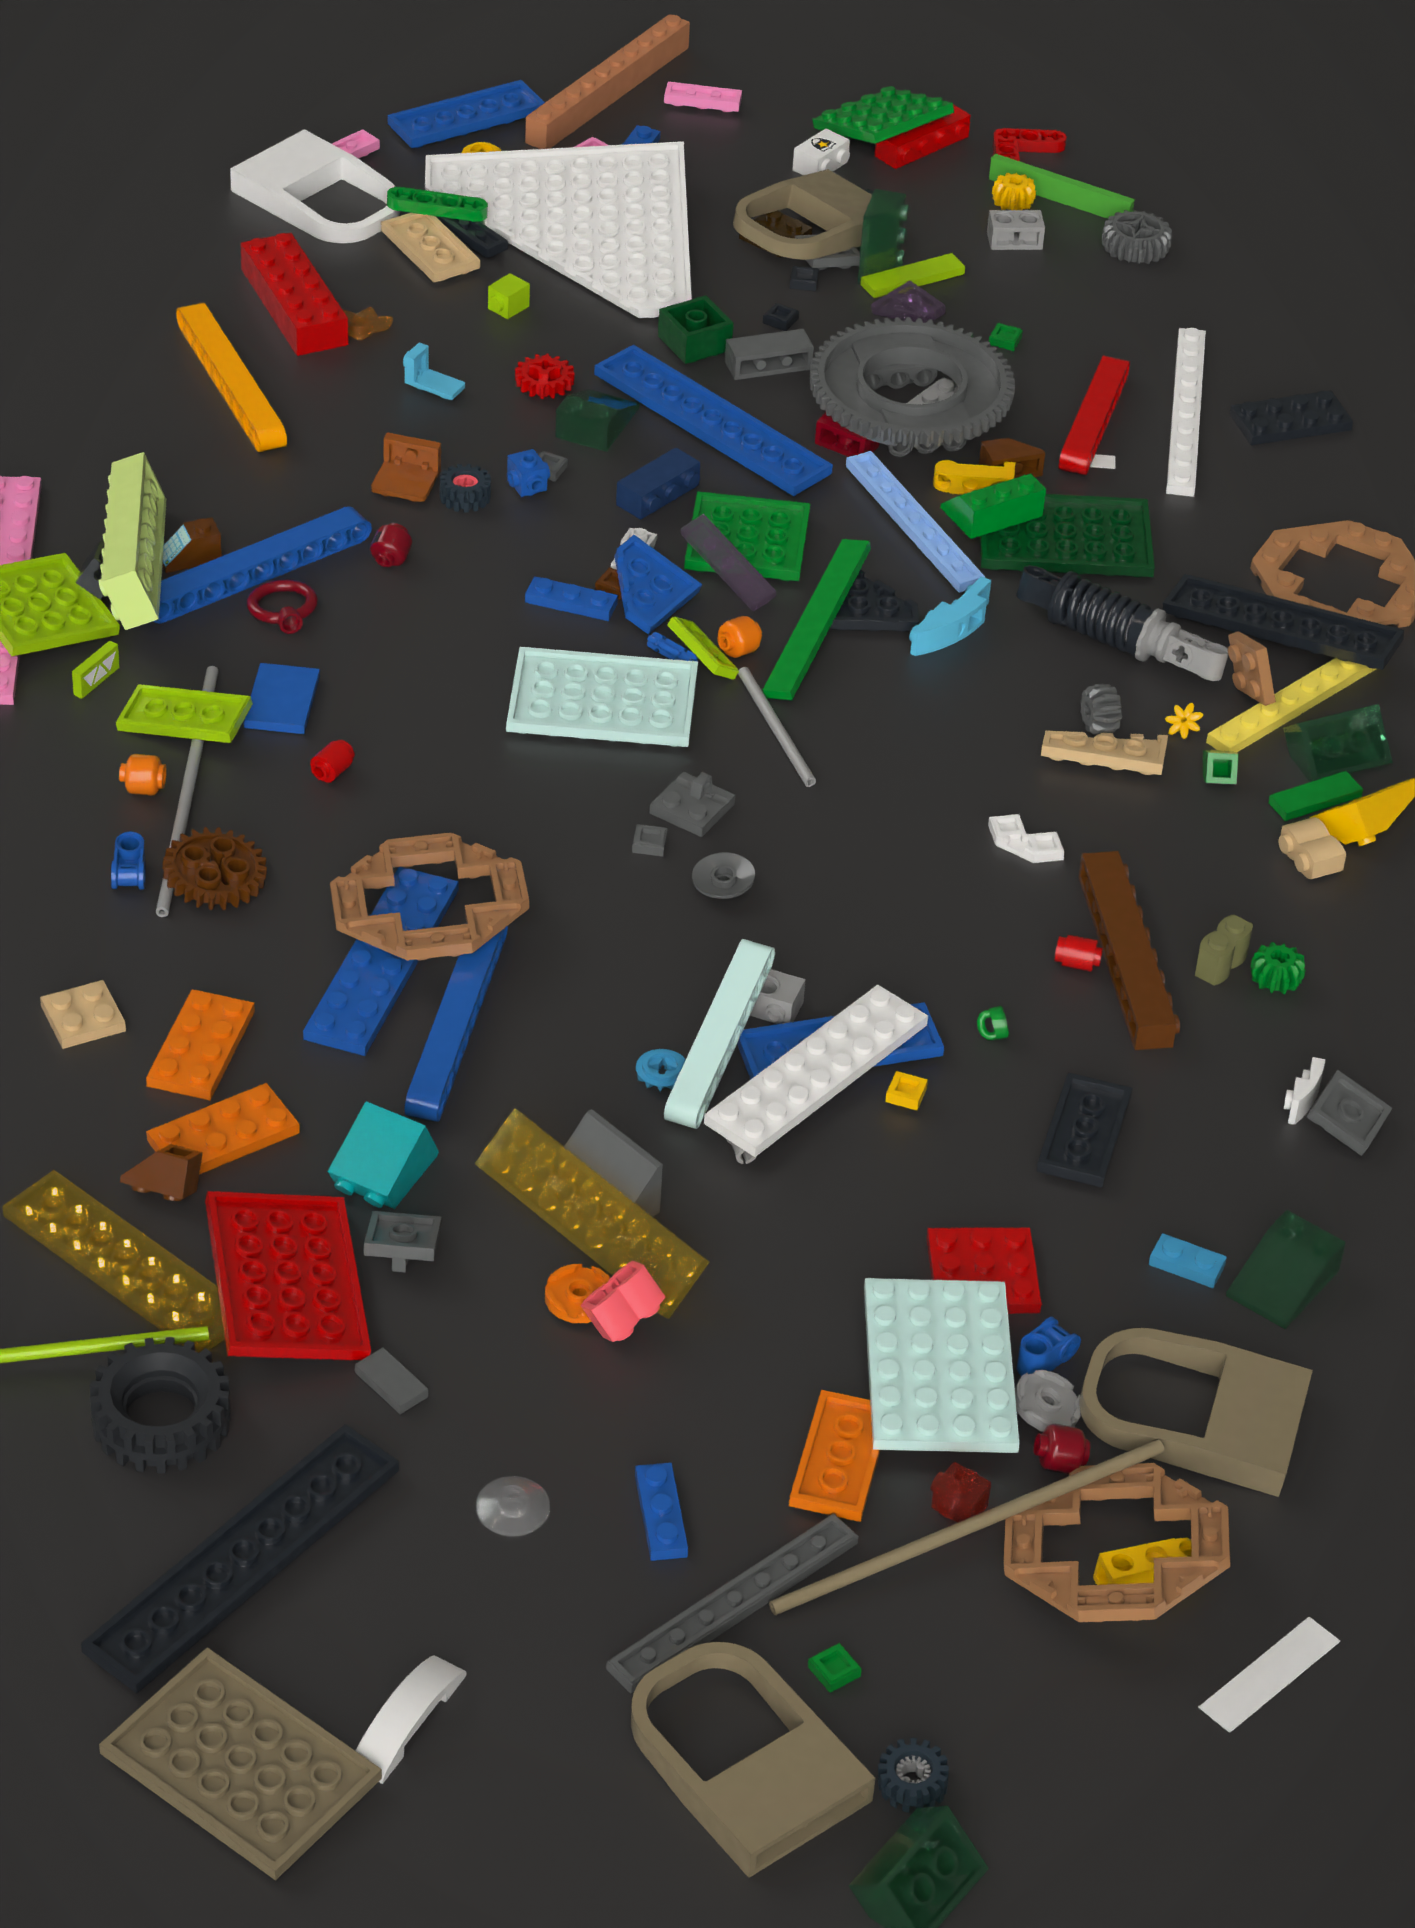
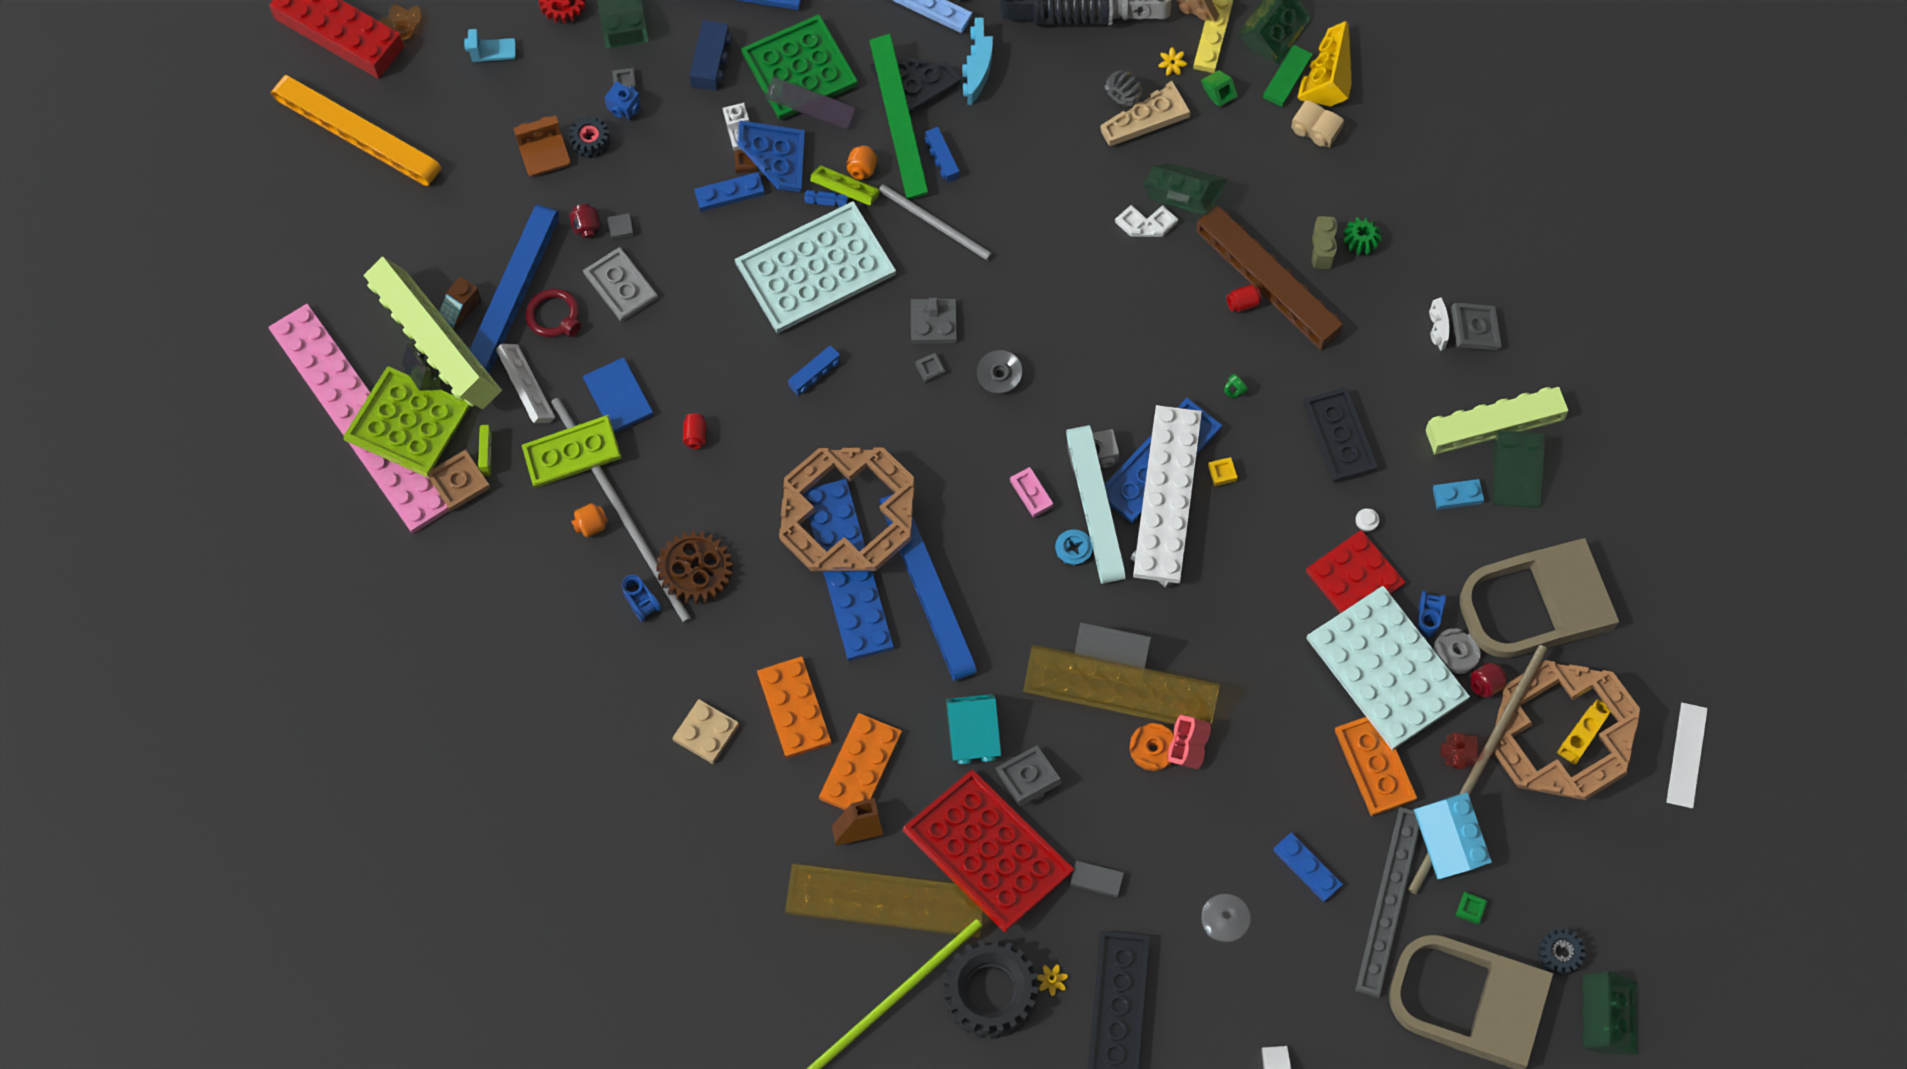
camera: 30 degrees left, 25 degrees up
(41, 680) = (458, 480): none -> medium nougat plate
(193, 639) = (525, 383): none -> white plate
(243, 1445) = (1052, 984): none -> yellow plant
(378, 615) = (620, 284): none -> light grey tile
(425, 571) = (620, 226): none -> dark grey tile
(515, 778) = (814, 370): none -> blue piece
(659, 996) = (1031, 492): none -> bright pink plate
(837, 679) = (942, 155): none -> blue piece
(869, 1566) = (1452, 835): none -> medium azure slope
(1047, 1225) = (1367, 519): none -> white plate
(1090, 819) = (1183, 187): none -> clear green slope
(1261, 1200) = (1484, 421): none -> yellowish green brick

